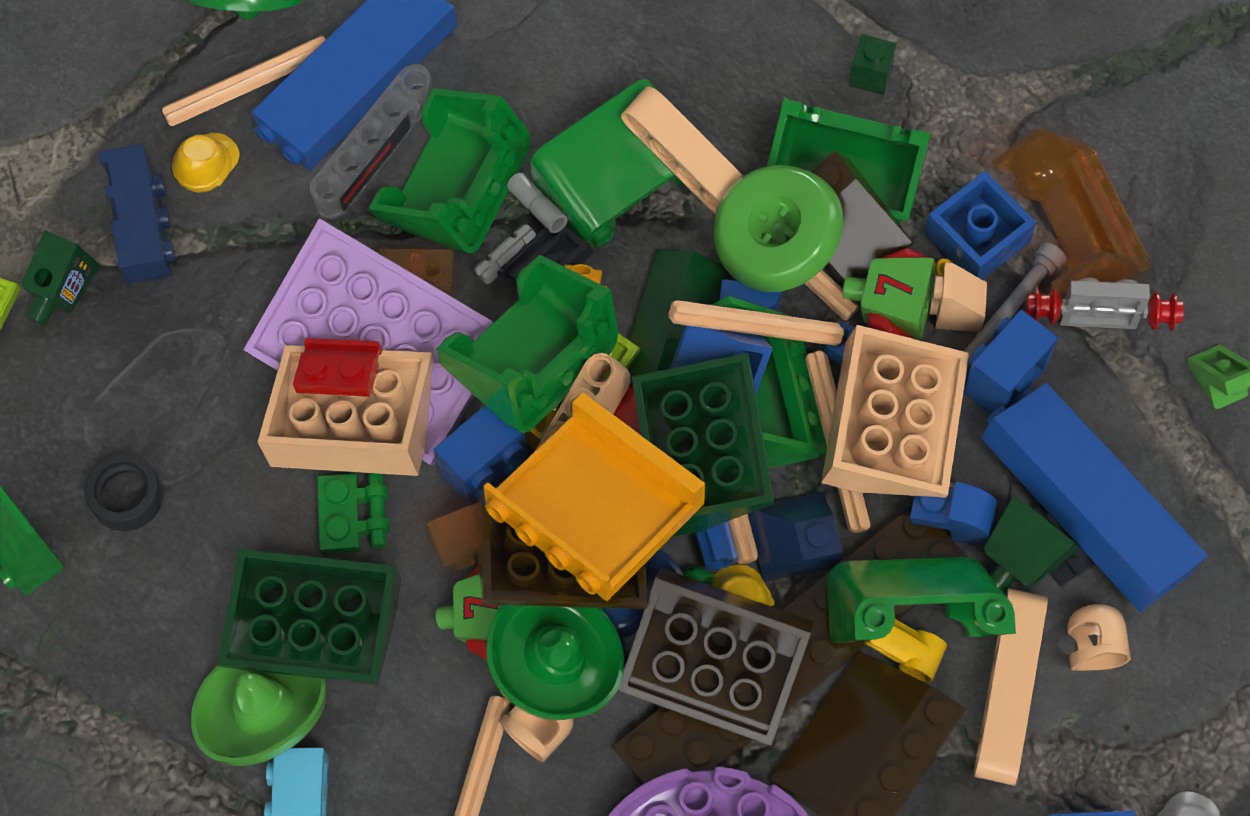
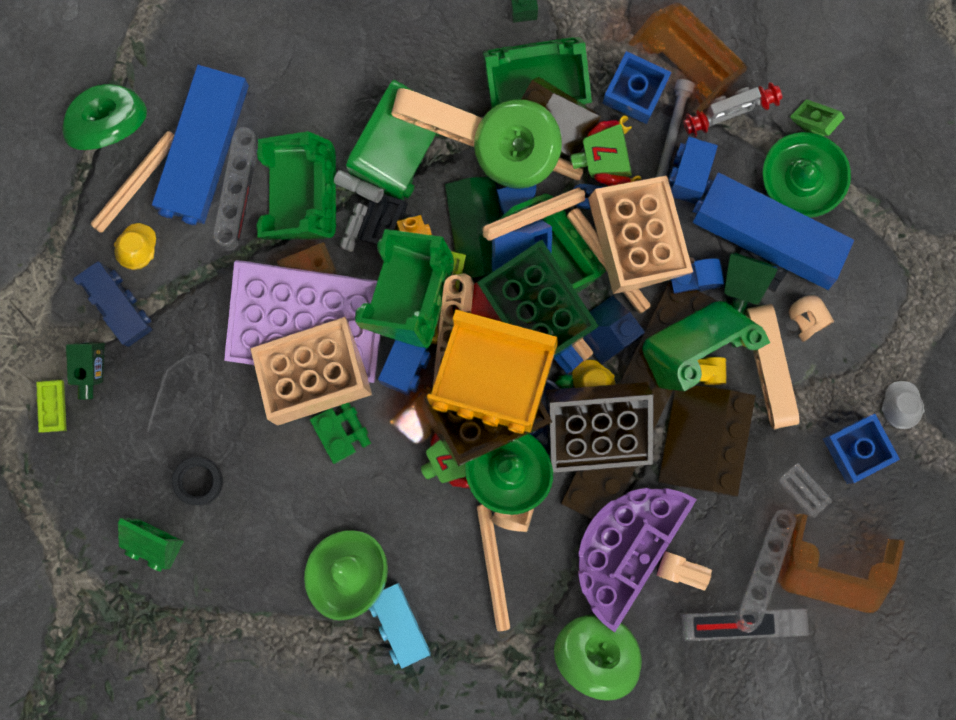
camera: 25 degrees left, 15 degrees up
(309, 616) = (350, 511): dark green slope -> none
(337, 367) = (292, 351): red plate -> none
(958, 300) = (644, 141): light nougat slope -> none
(1177, 440) = (807, 173): none -> green hat

